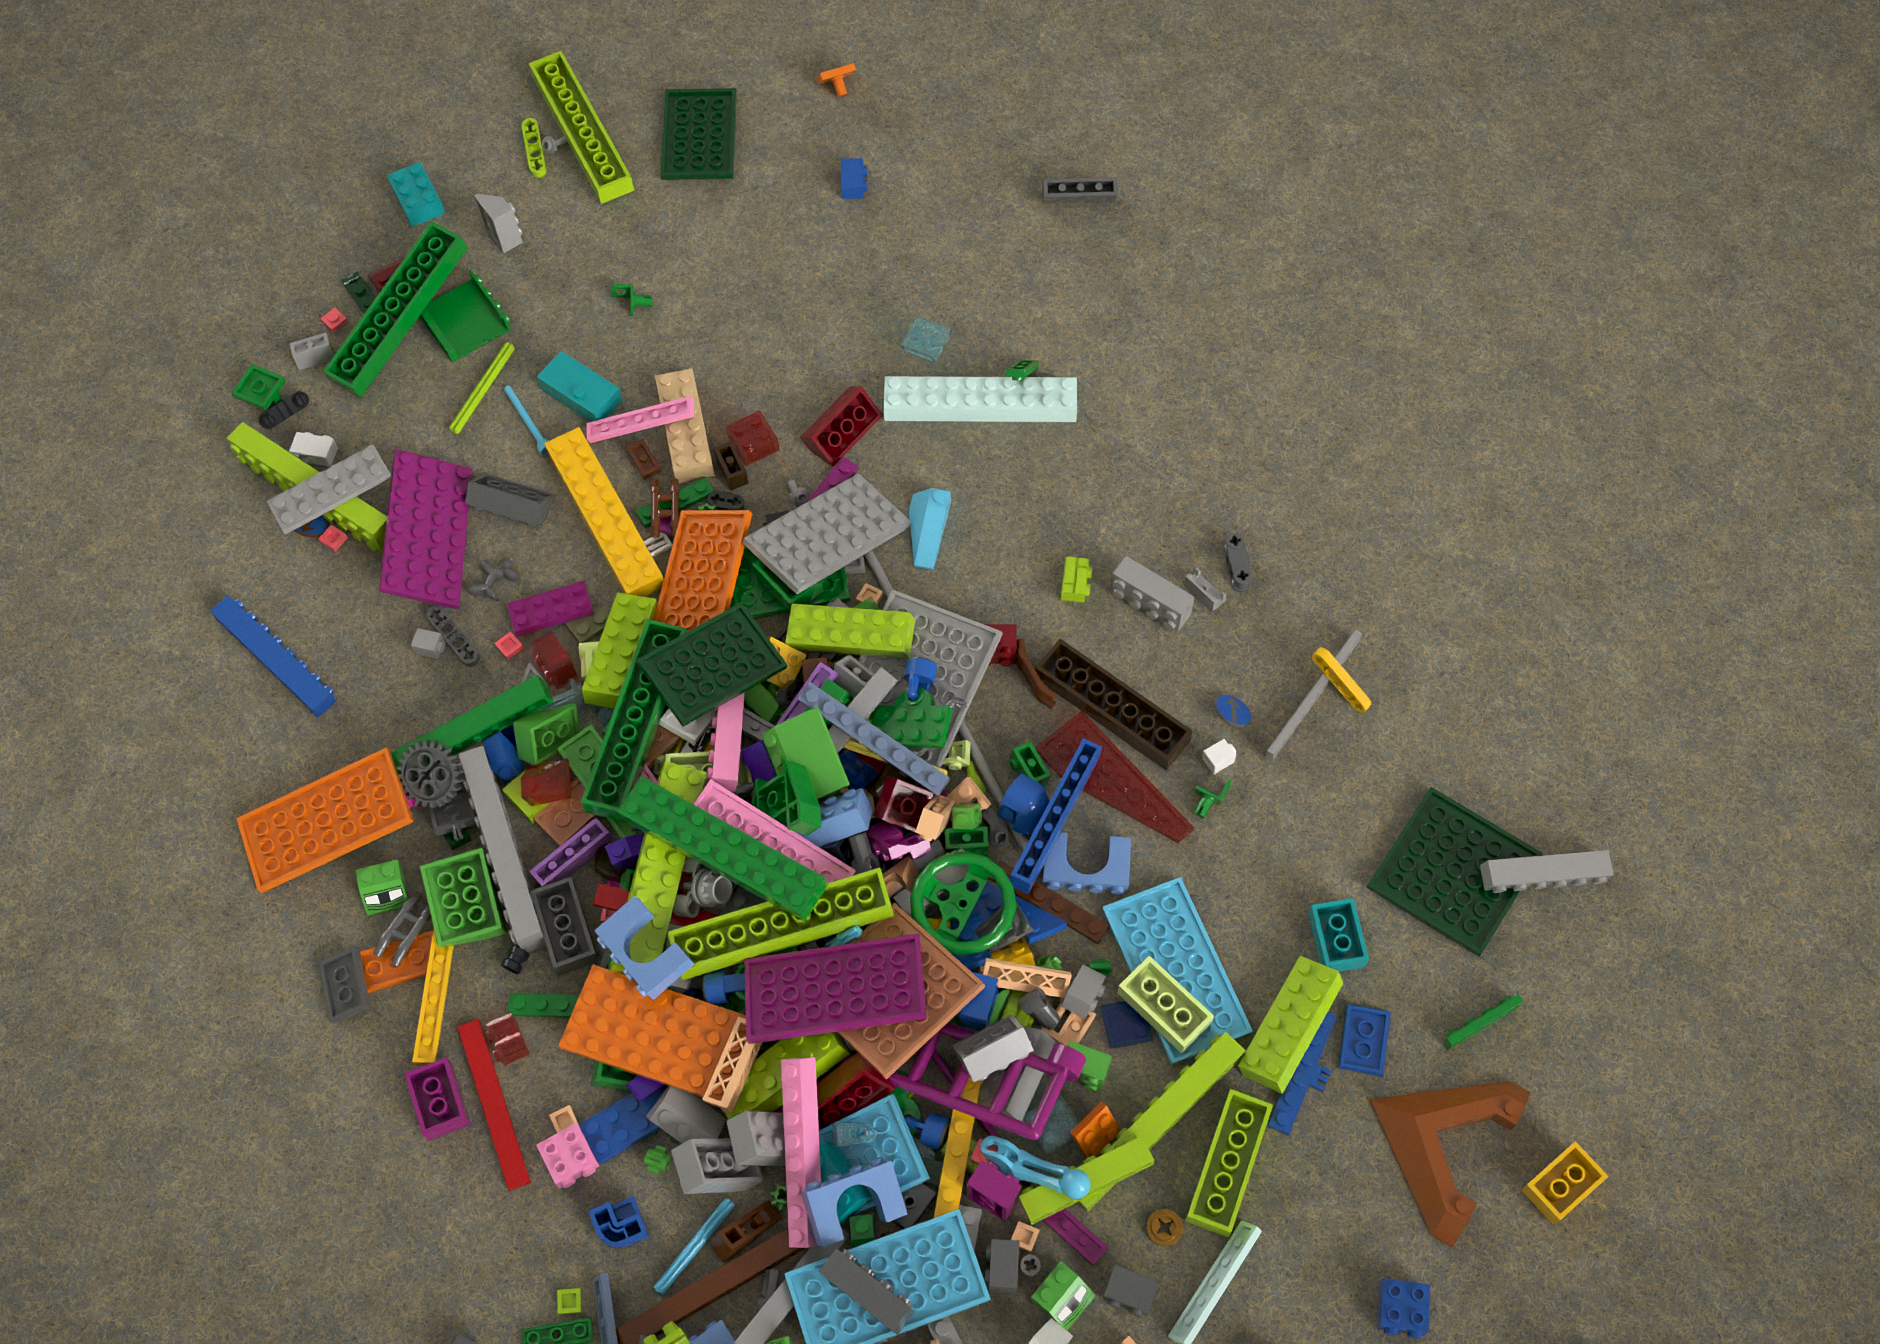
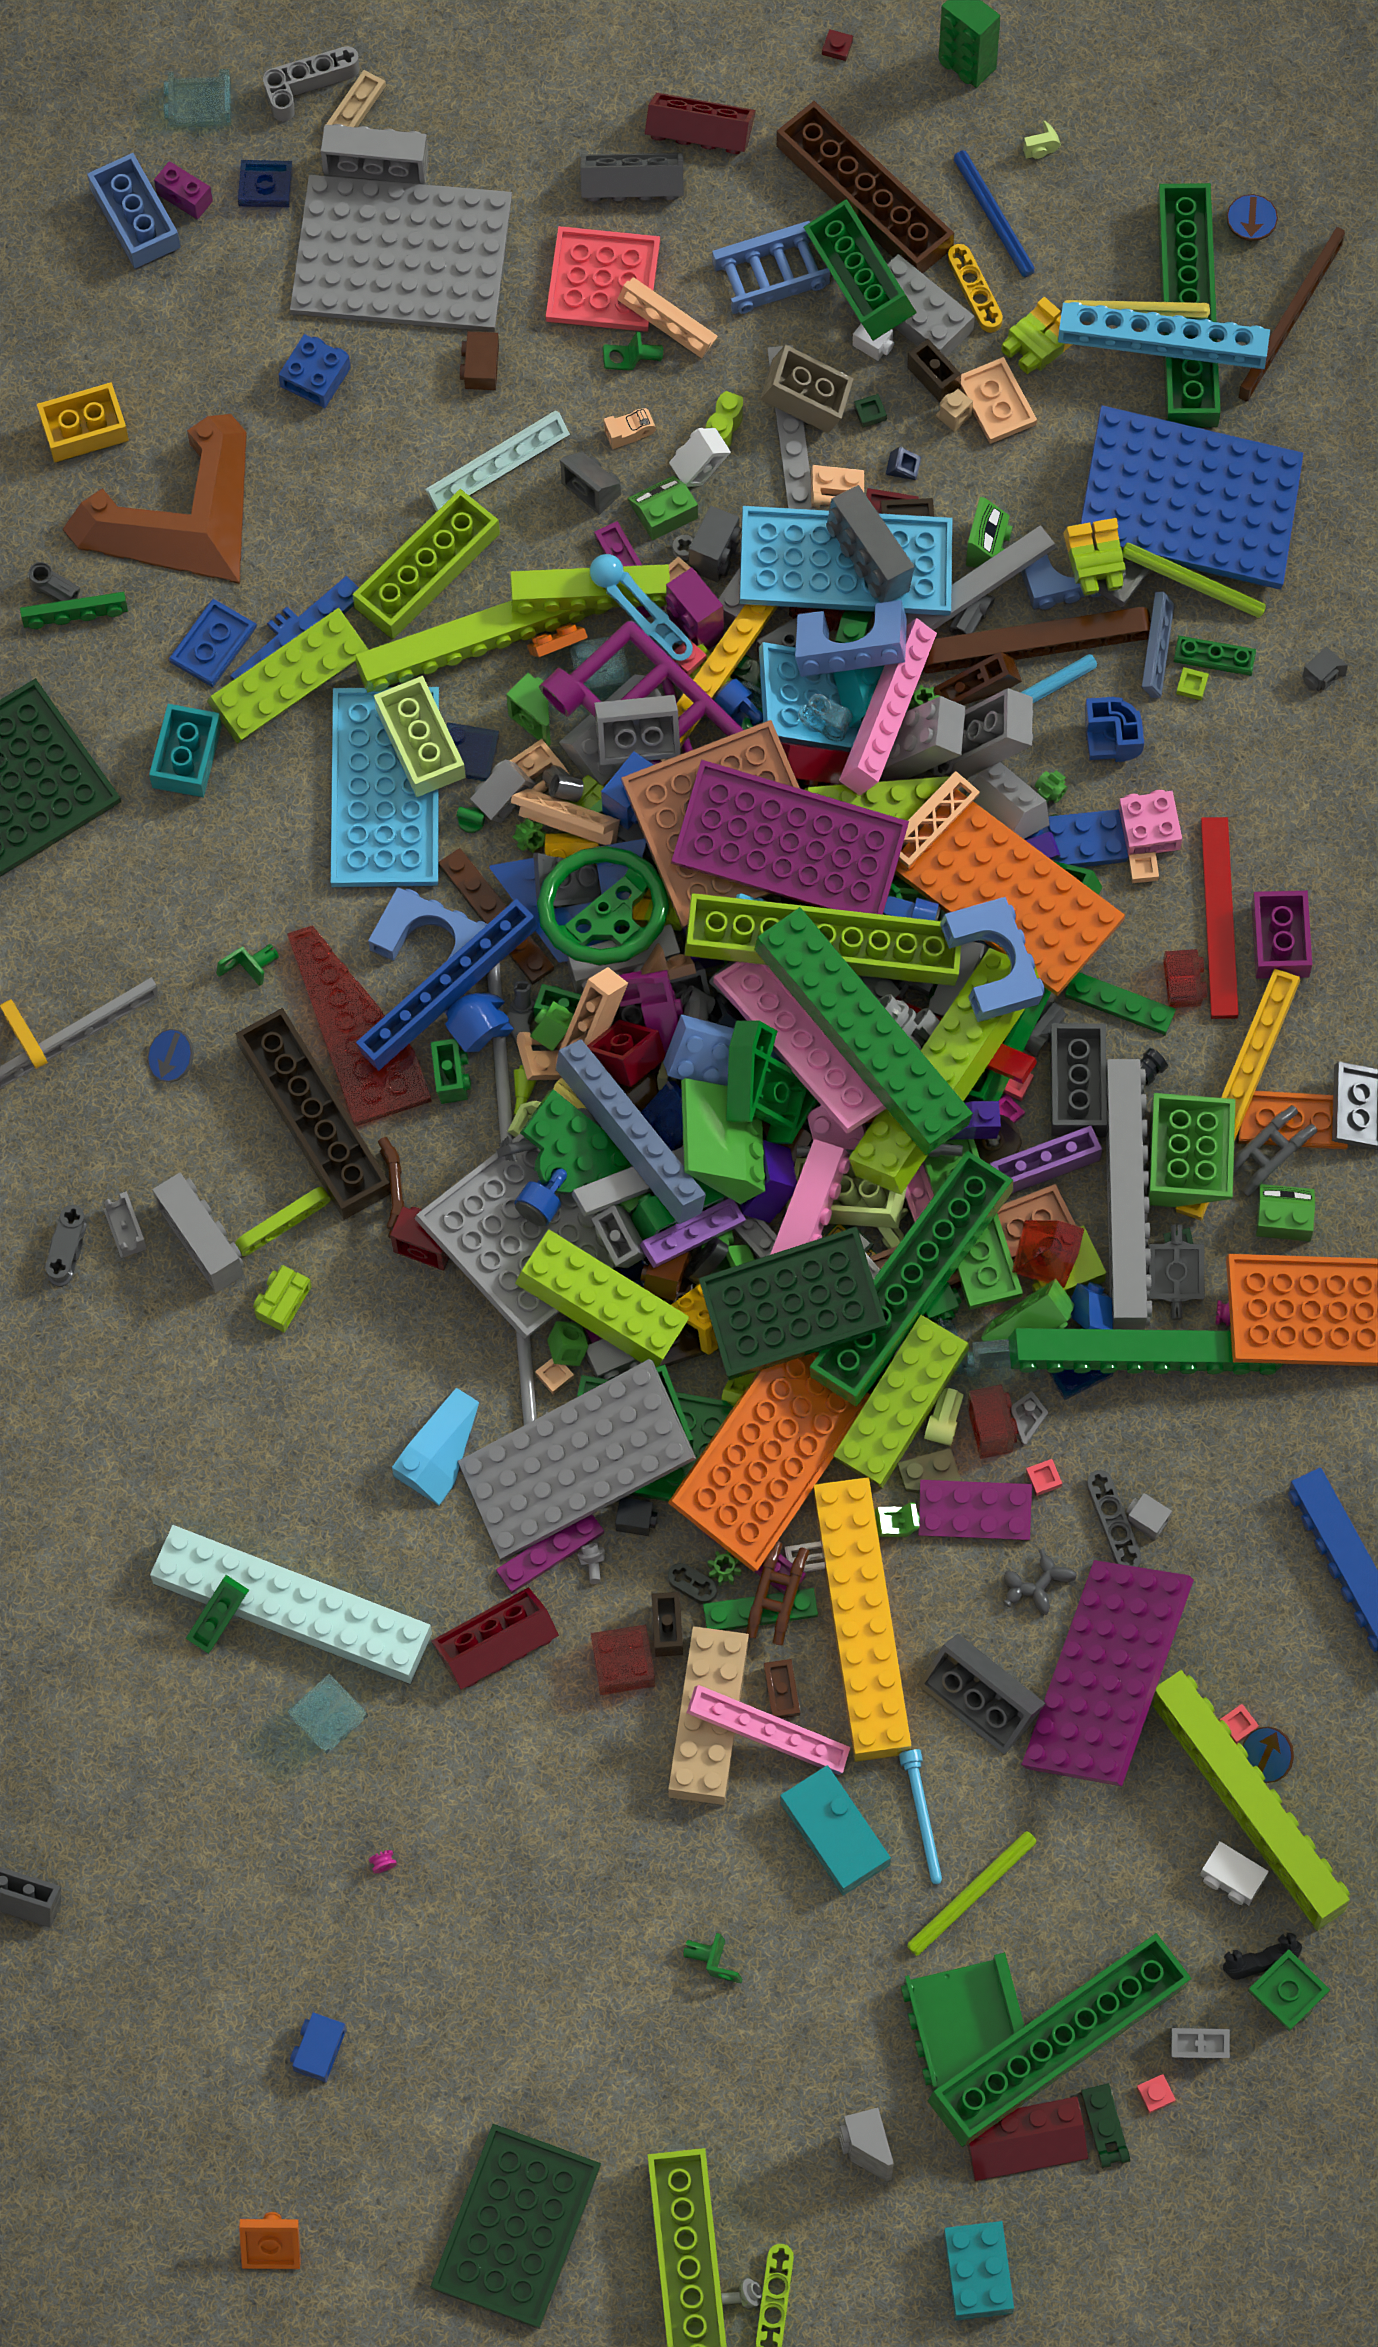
camera: 160 degrees left, 5 degrees up
(329, 489) = (1223, 1757): light grey plate -> none
(444, 787) = (1189, 1305): dark grey gear -> none
(601, 583) = (897, 1520): none -> bright green bracket
(857, 282) = (383, 1861): none -> dark pink bush
(1101, 627) = (282, 1221): none -> lime beam
(1175, 1229) = (531, 525): pearl gold gear -> none
(1219, 756) = (214, 1007): white brick -> none
(1508, 1037) = (54, 585): none -> dark grey piece

